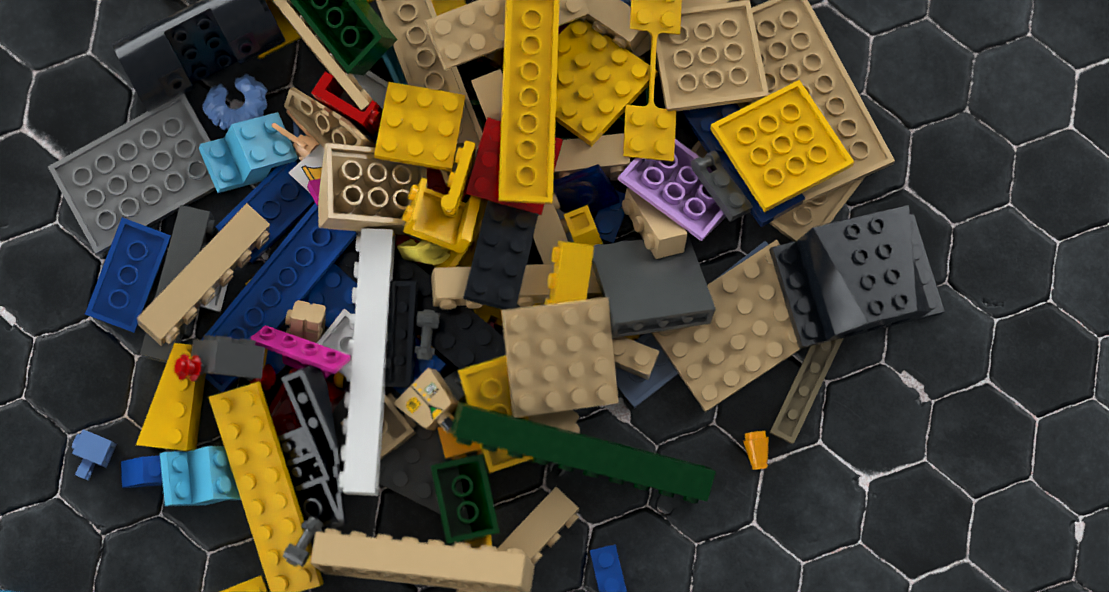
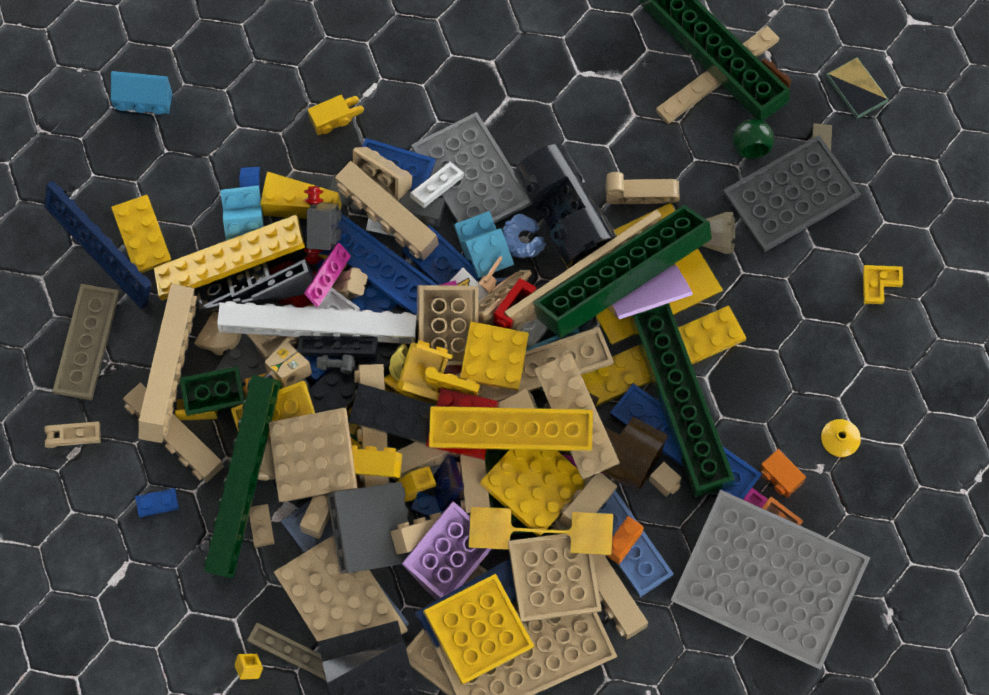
camera: 85 degrees right, 10 degrees down
(44, 361) = (333, 113): none -> yellow hinge
(93, 450) = (267, 147): medium blue brick -> none
(143, 284) = (383, 172): none -> tan slope
(161, 213) = (436, 184): none -> white plate
(296, 554) = (179, 276): dark grey bar -> none
(375, 511) = (216, 341): none -> tan slope
(639, 433) = (261, 525): none -> tan plate
(721, 186) = (447, 583): dark grey plate -> none
(757, 449) = (245, 613): light orange cone -> none
(825, 441) = (248, 666): none -> yellow slope

